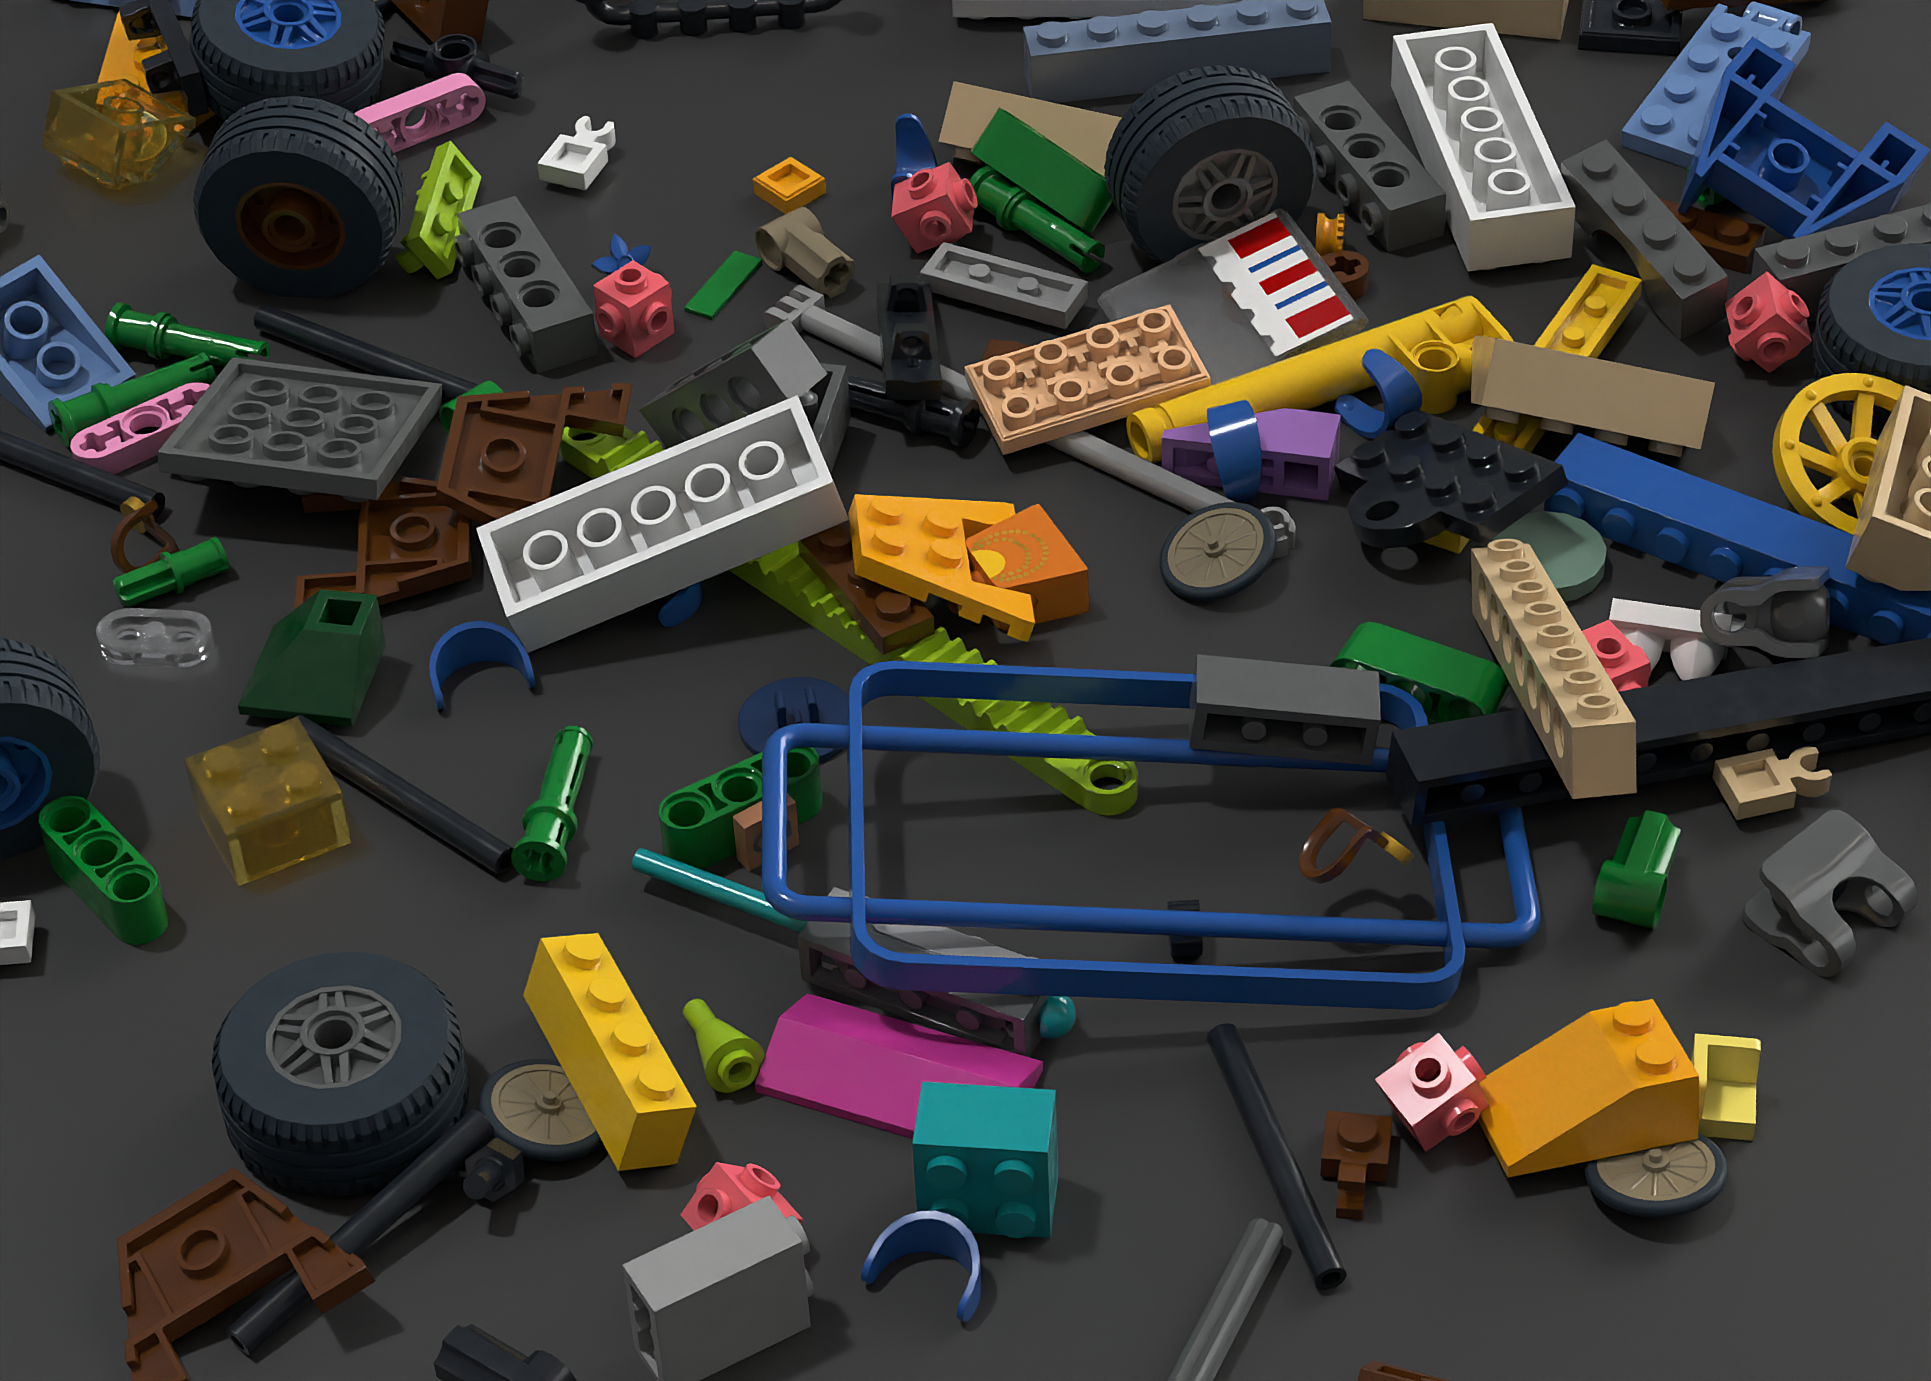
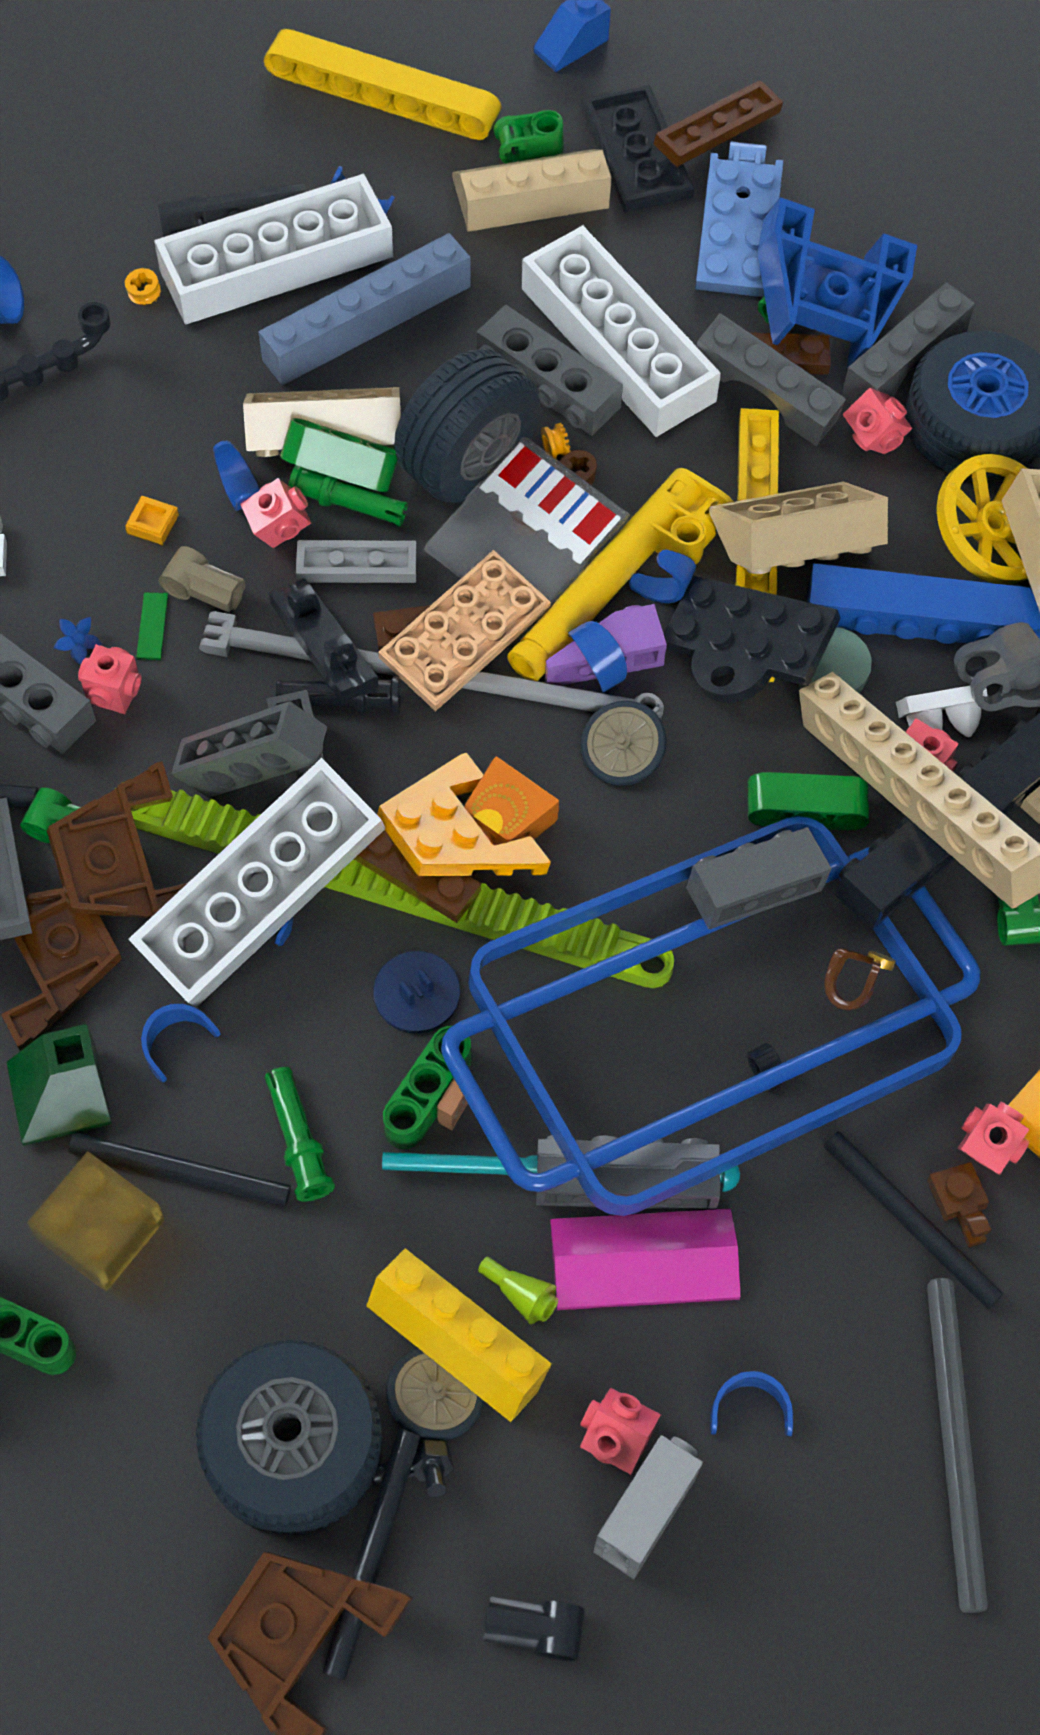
camera: 30 degrees left, 20 degrees up
(987, 1157) = (758, 1321): teal brick -> none

